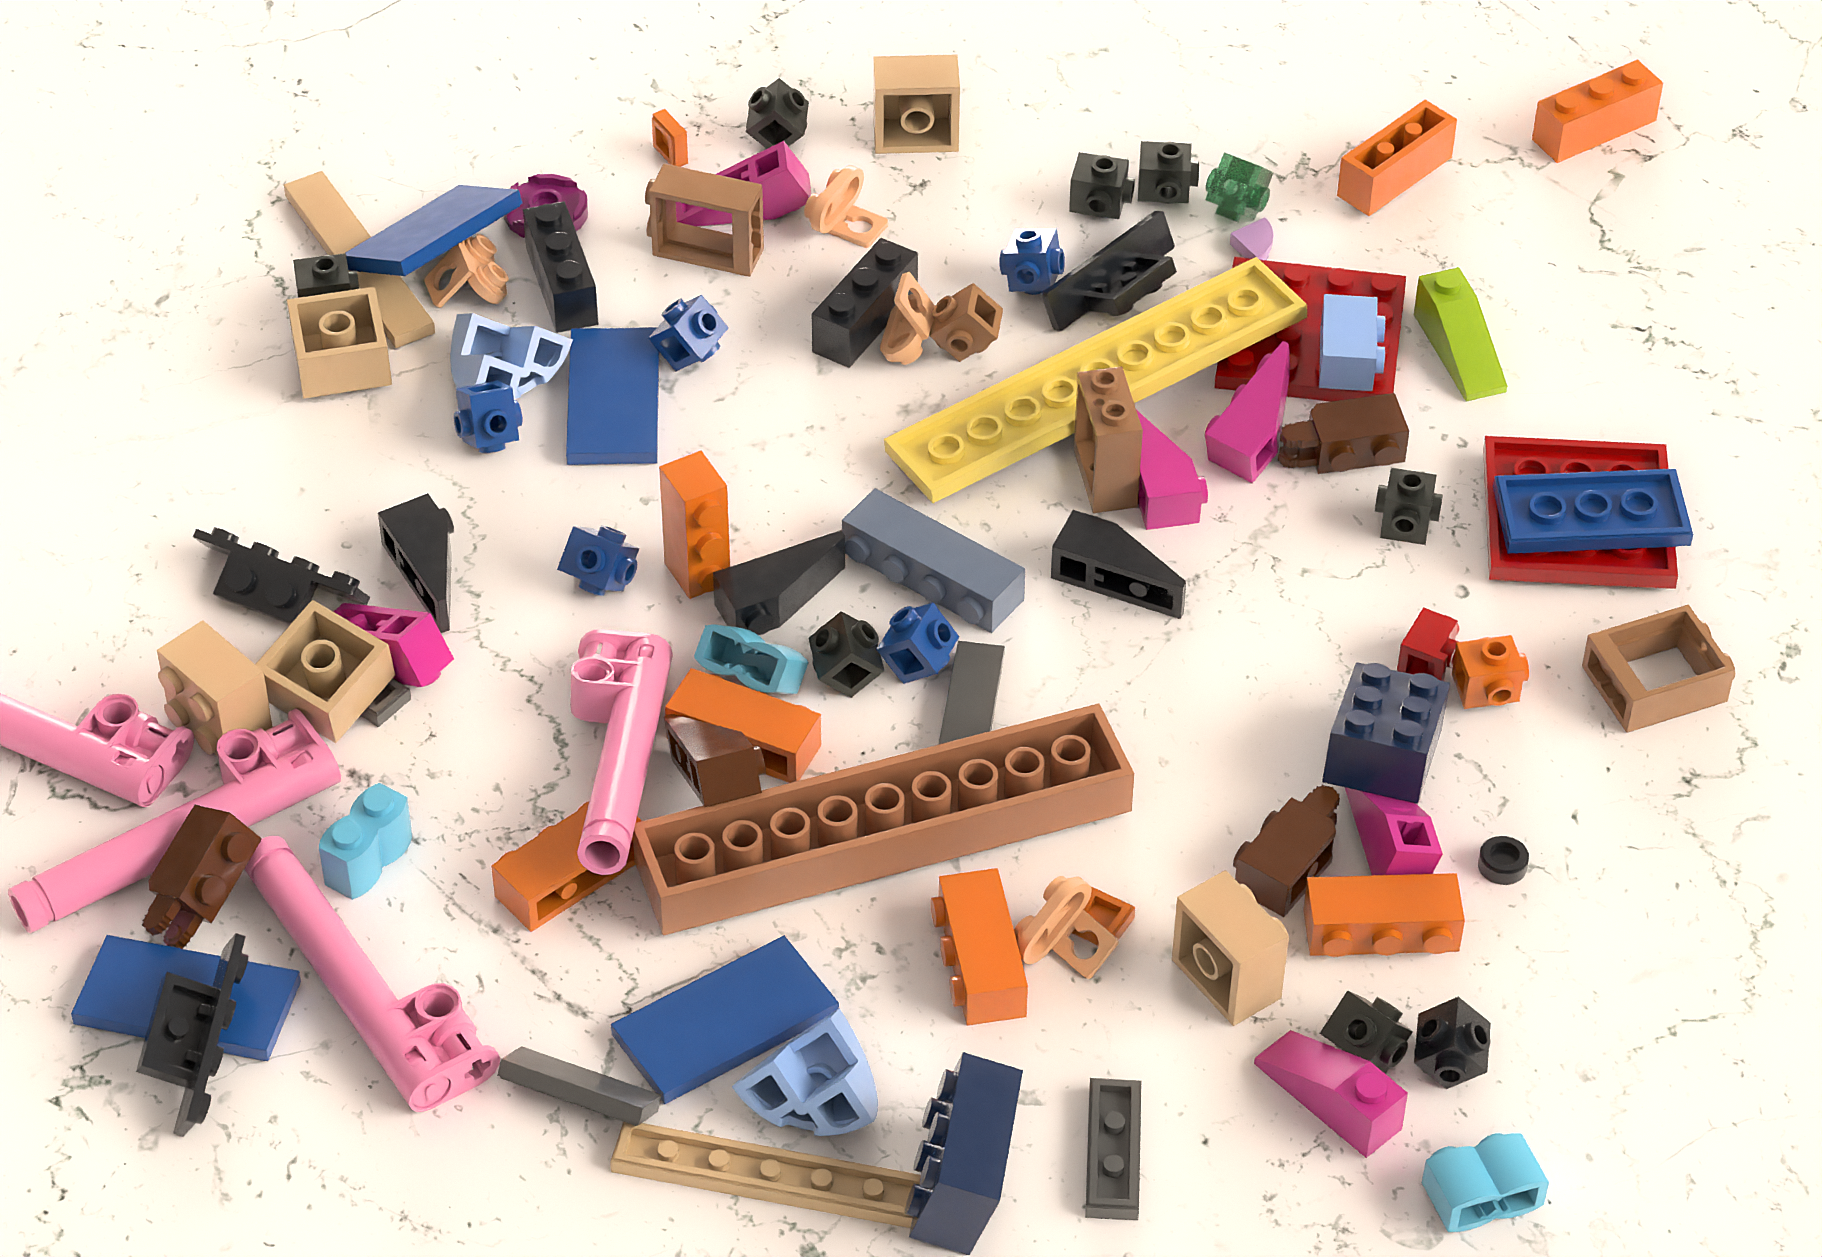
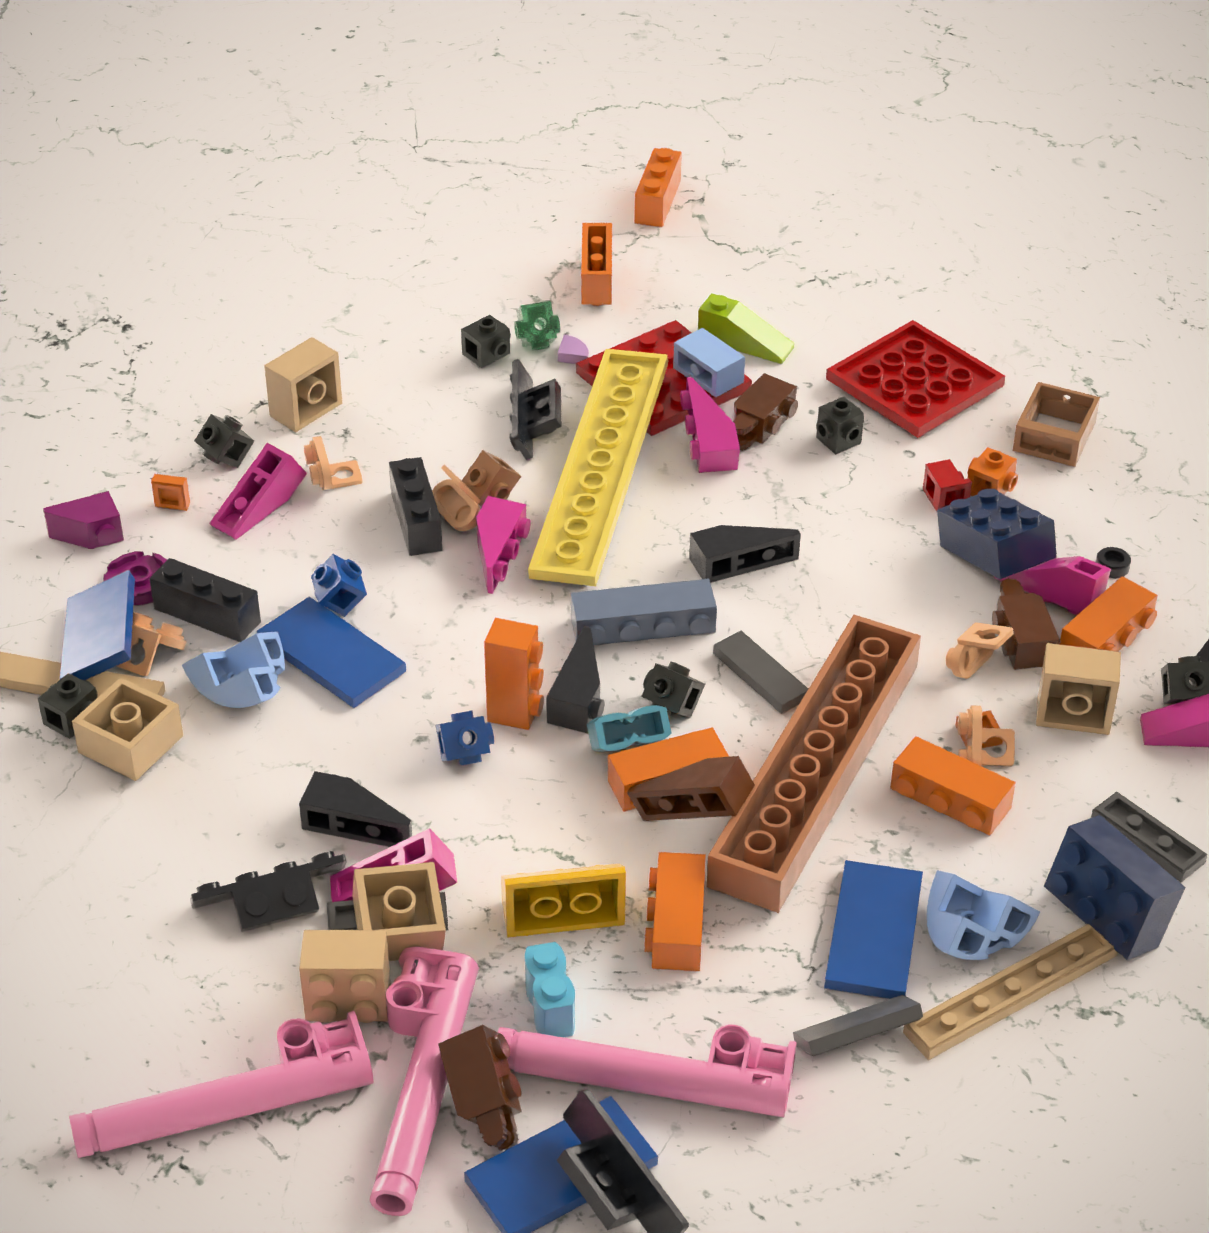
camera: 45 degrees left, 5 degrees down
(484, 768) = (564, 900): none -> yellow slope
(487, 416) = (283, 706): blue brick -> none
(565, 119) = (85, 521): none -> magenta slope
(627, 692) = (578, 795): bright pink piece -> none
(702, 246) = (273, 537): medium nougat window -> none
(898, 388) = (499, 532): none -> dark pink slope
(917, 642) = (704, 656): blue brick -> none
(1032, 260) = (479, 426): blue brick -> none
(1100, 185) = (460, 368): pearl dark grey brick -> none
(1107, 439) = (642, 502): medium nougat window -> none
(1168, 482) = (693, 490): dark pink slope -> none
(1200, 834) = (976, 648): none -> light nougat bracket
(1592, 511) = (928, 370): blue tile -> none

